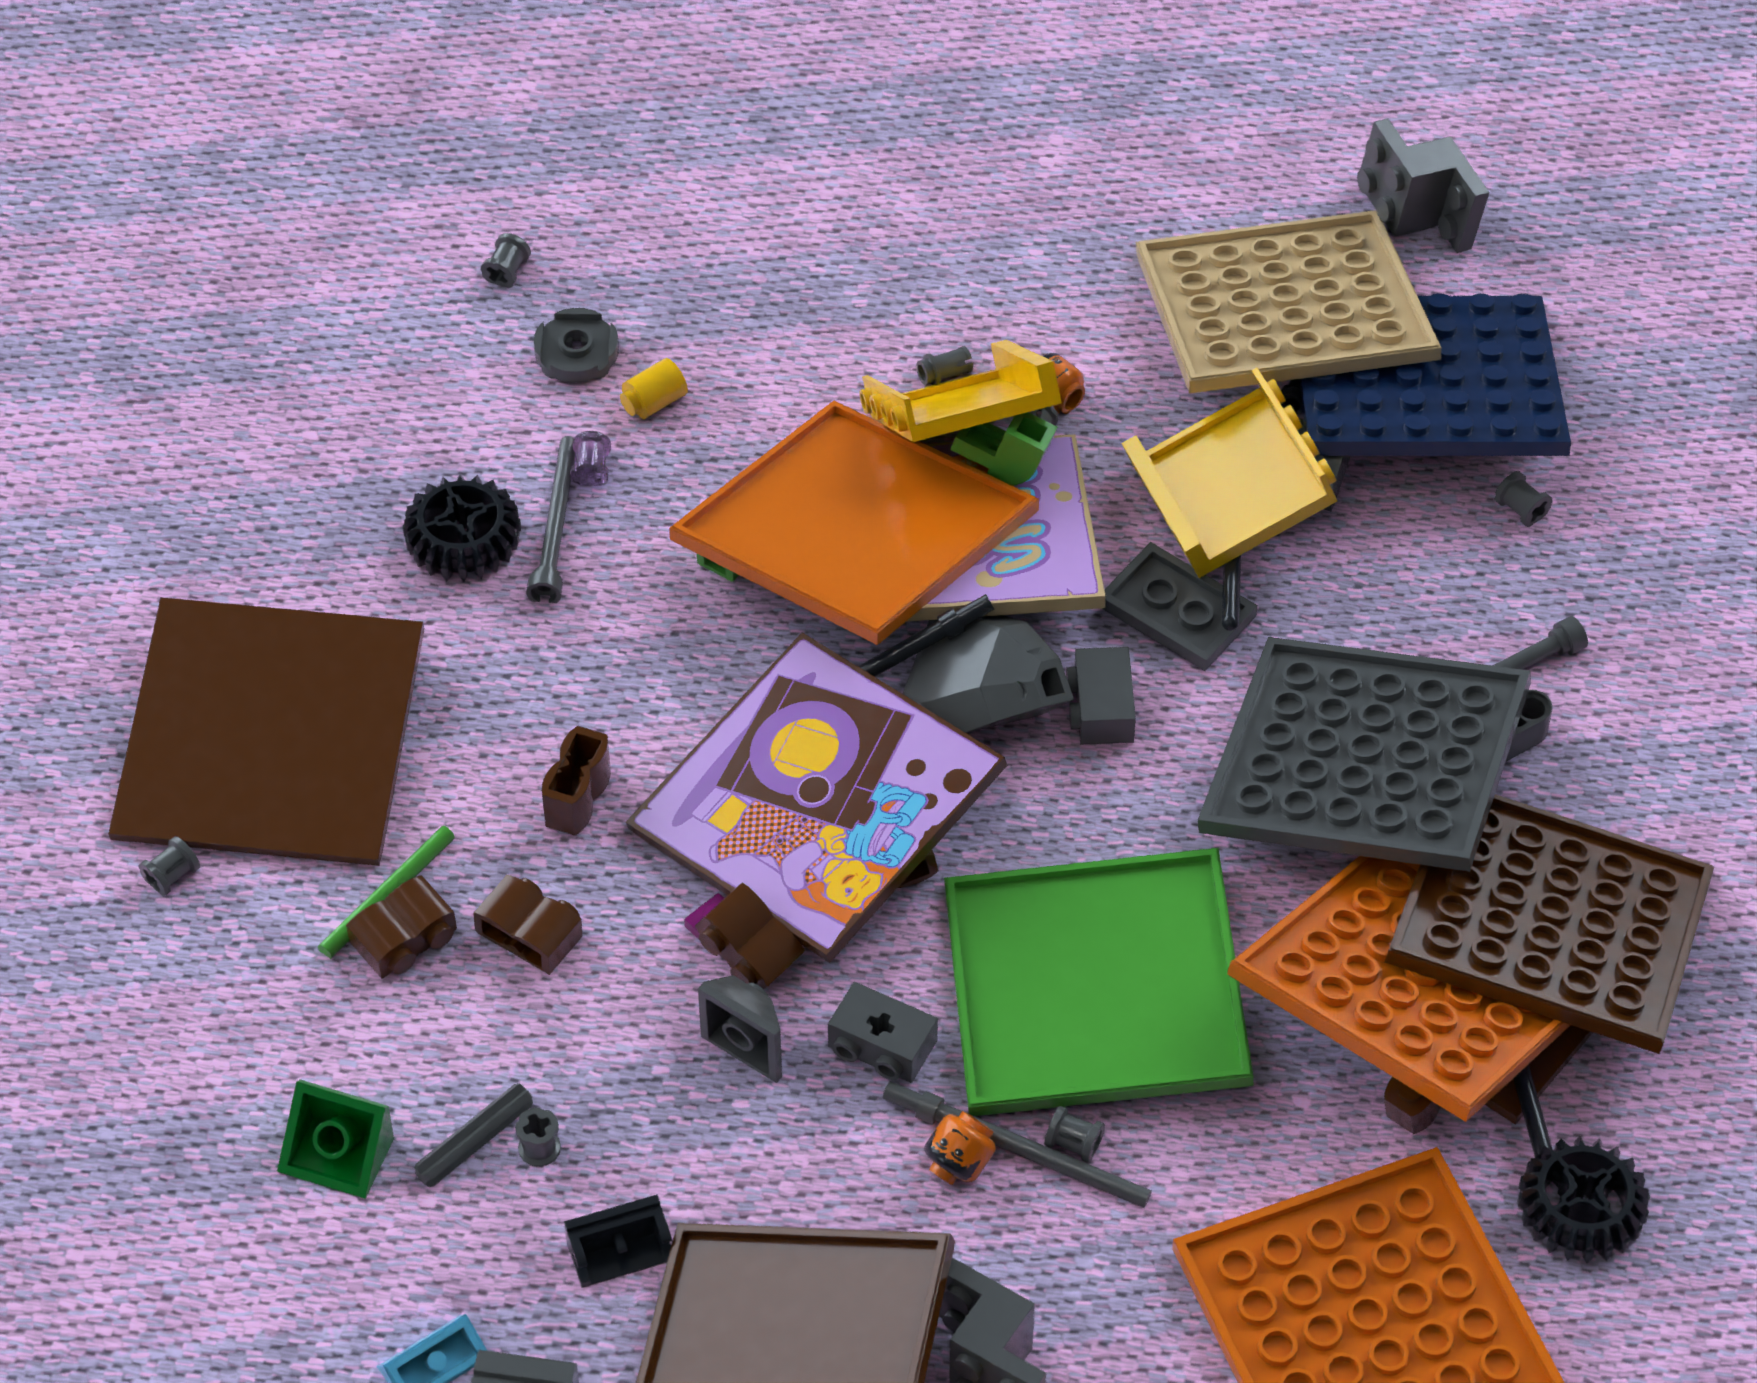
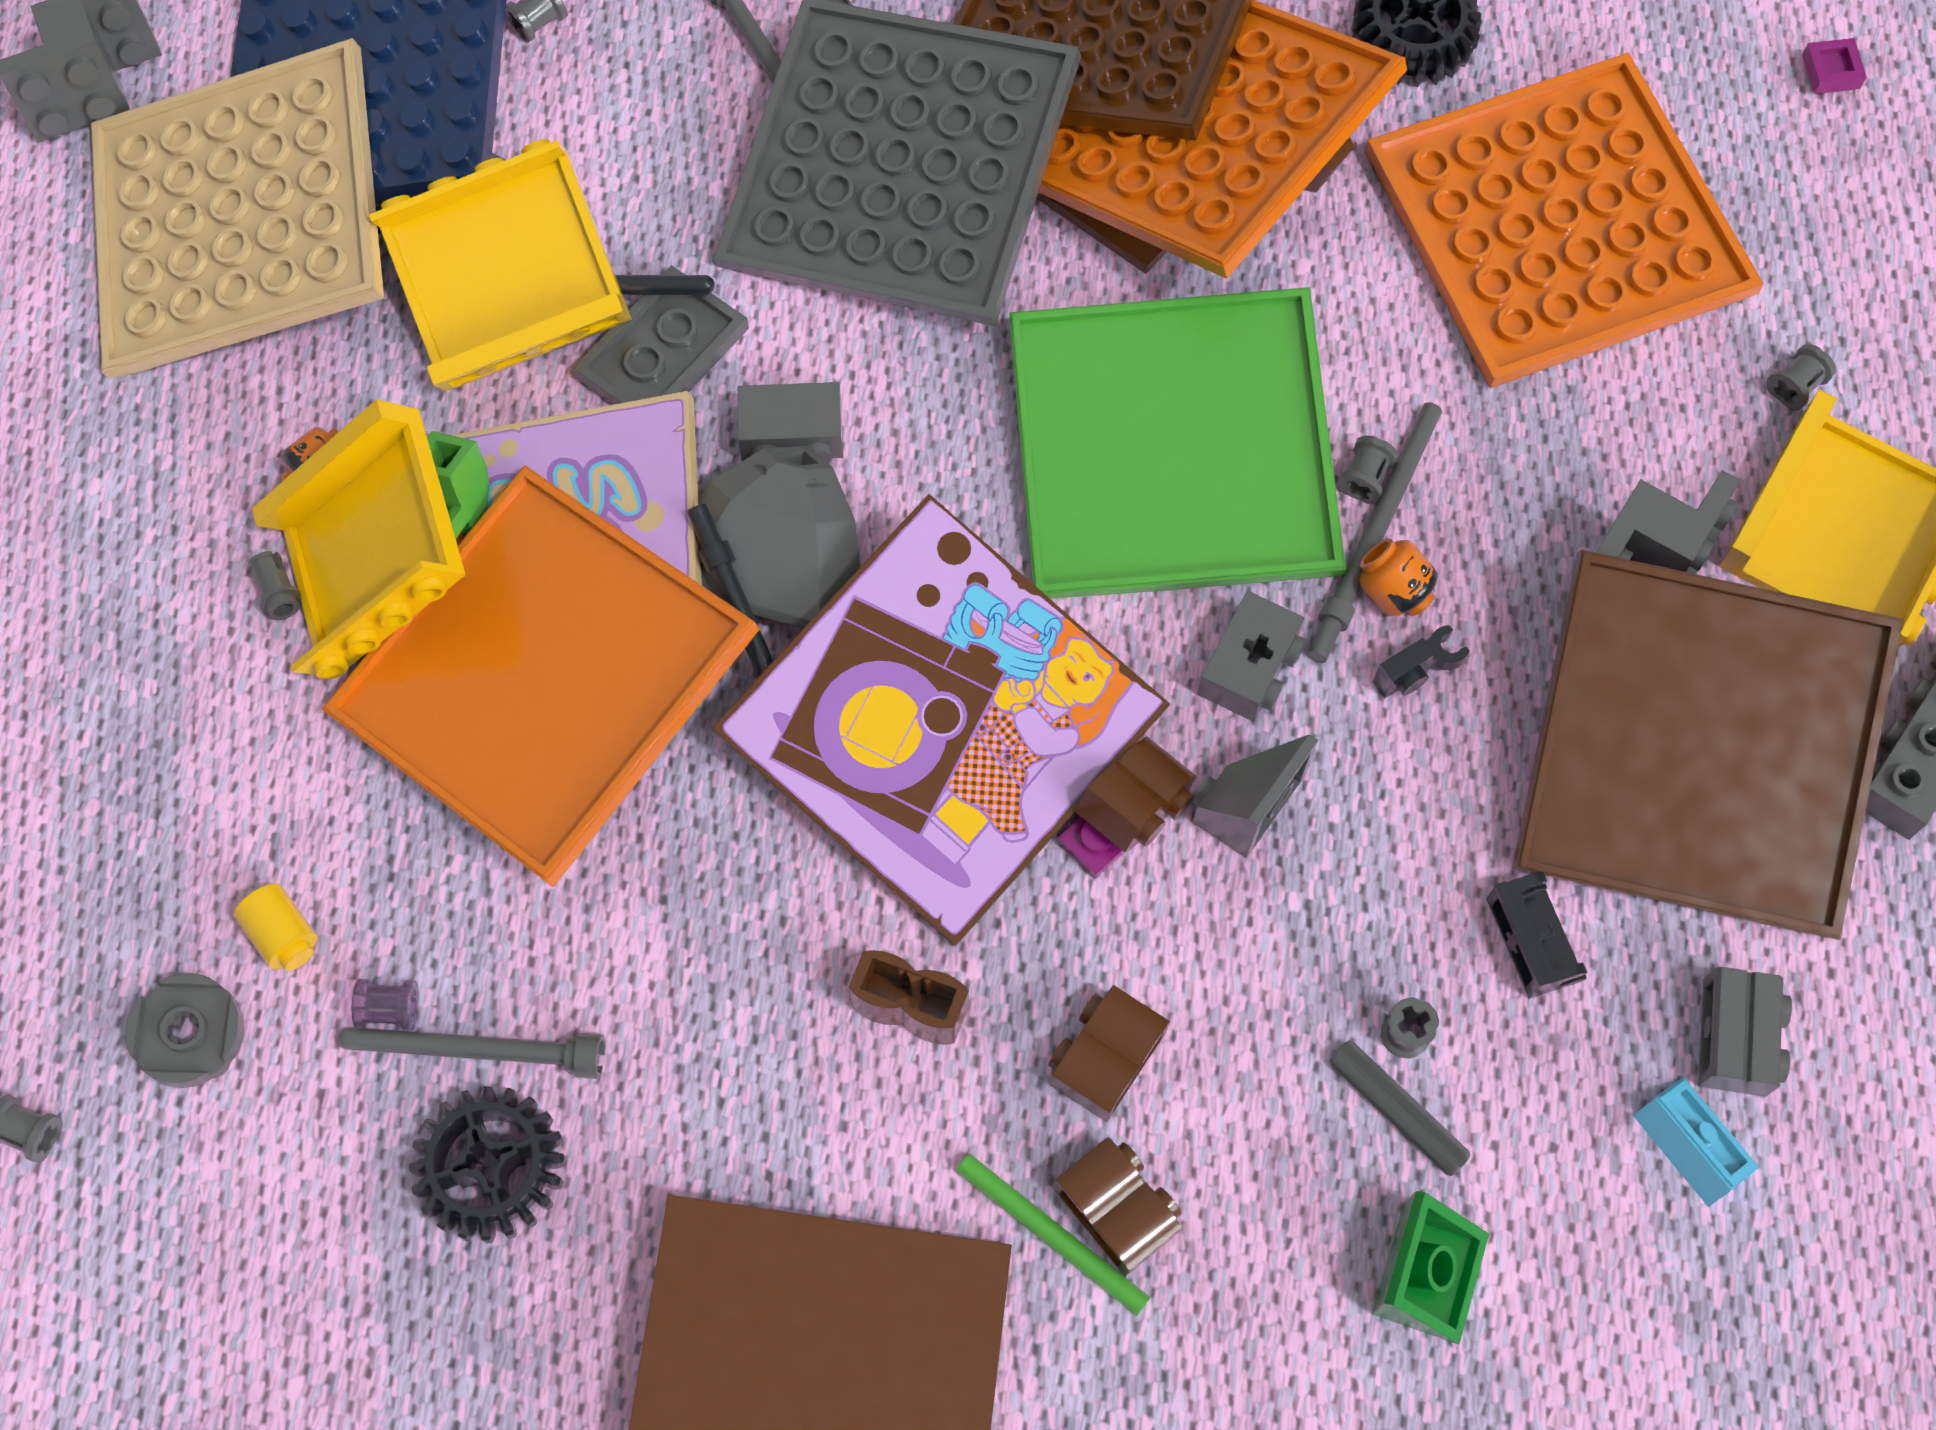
camera: 90 degrees left, 15 degrees up
(871, 1153) = (1409, 667): none -> black plate

